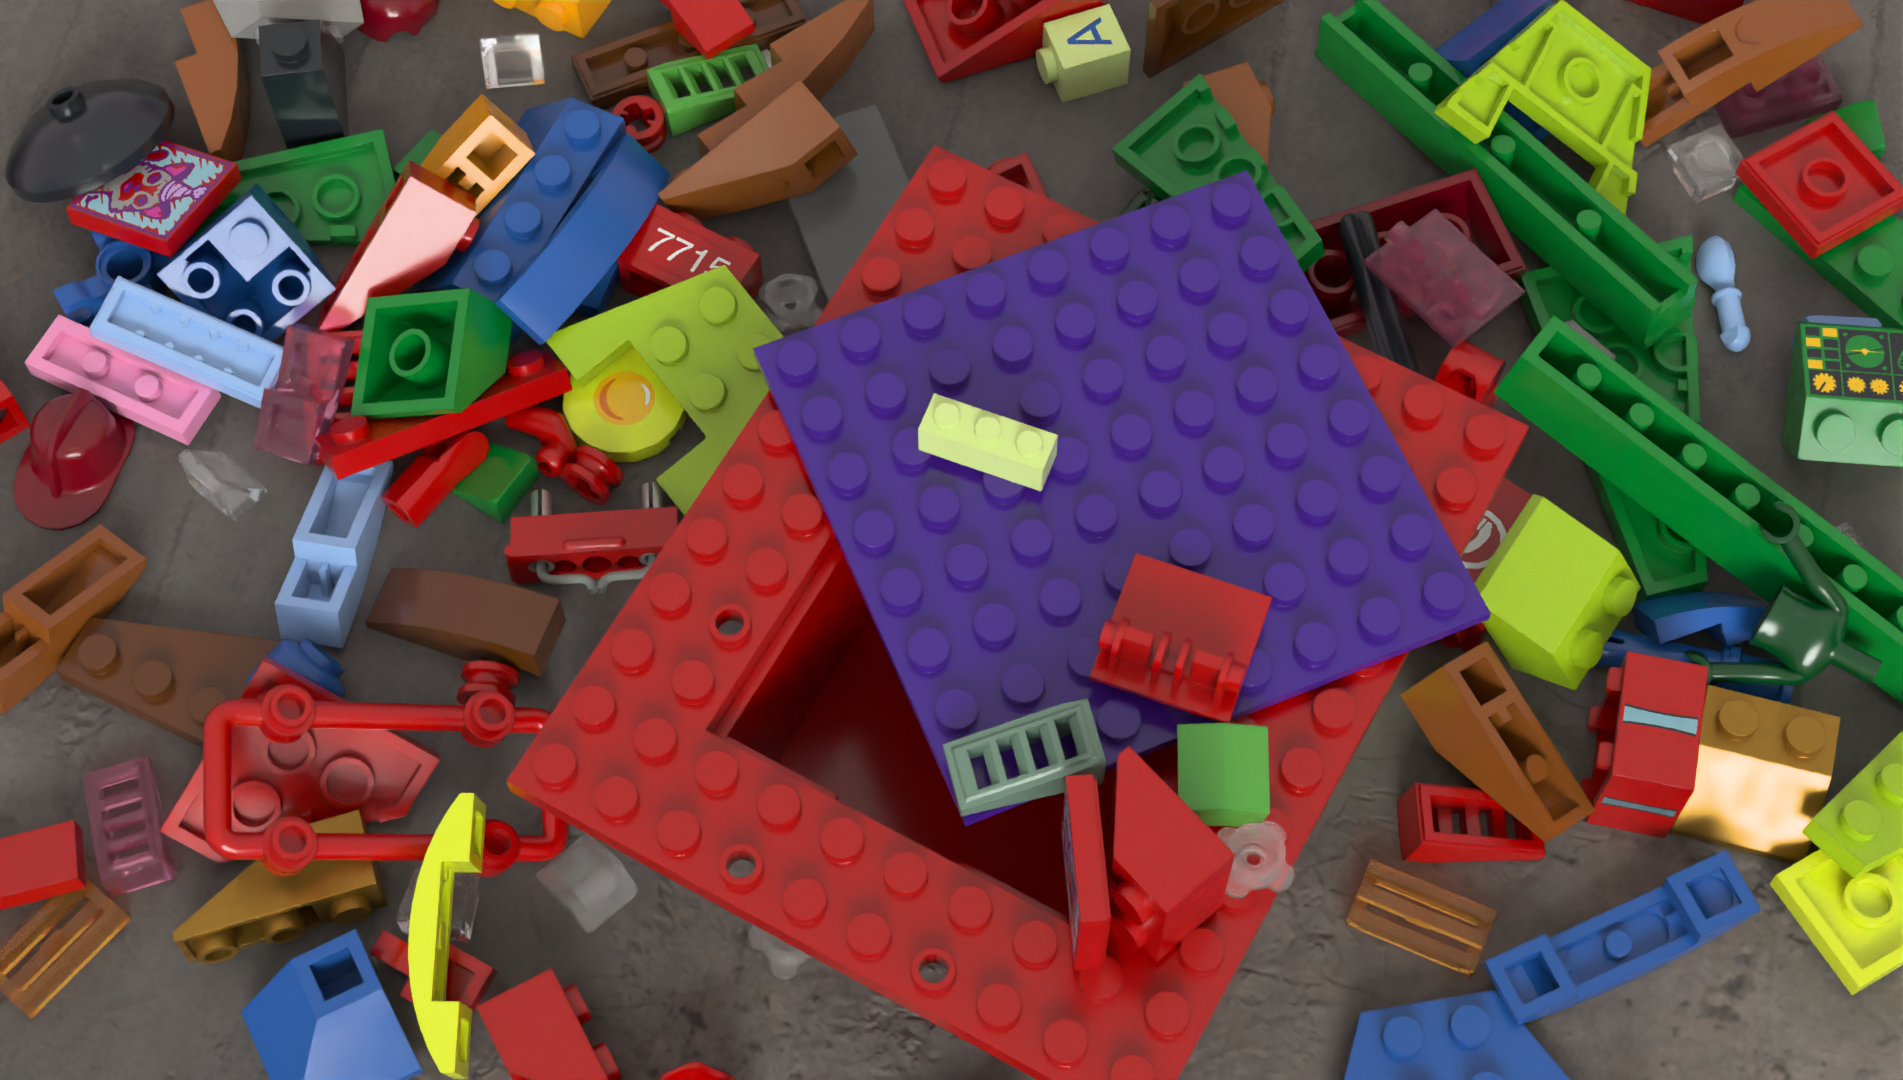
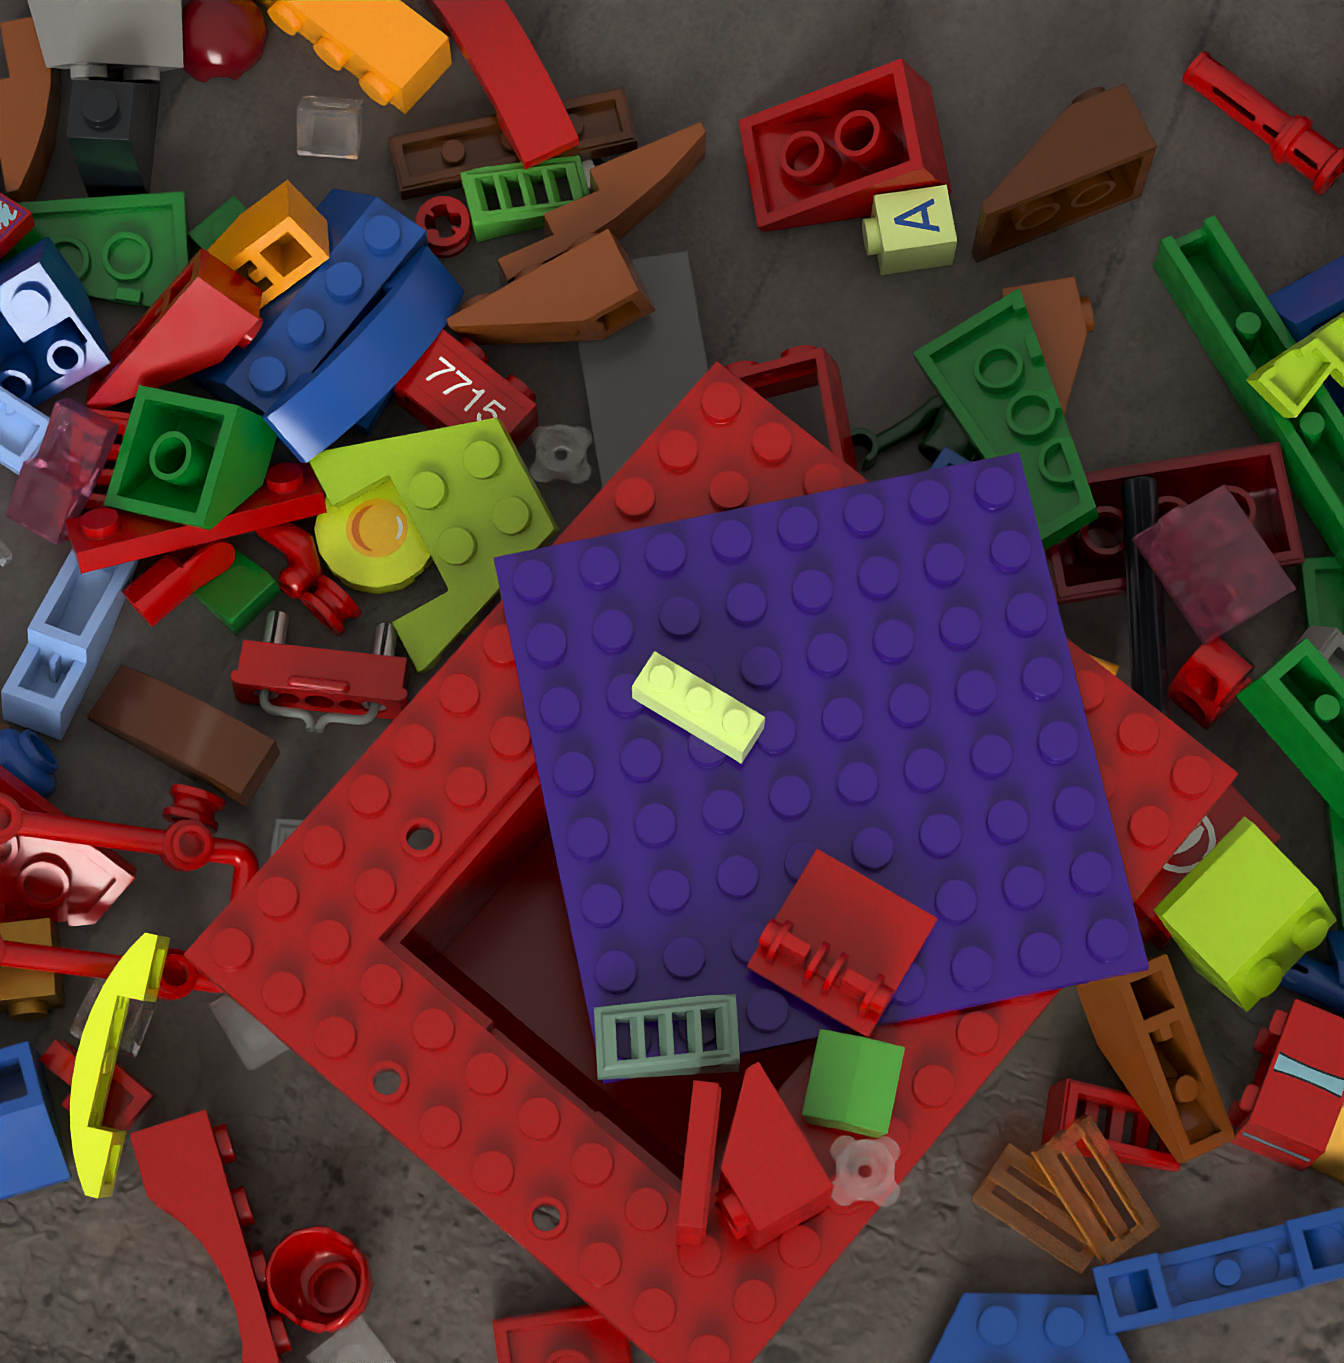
camera: 10 degrees right, 10 degrees up
(1450, 896) = (1064, 1143): none -> clear orange tile

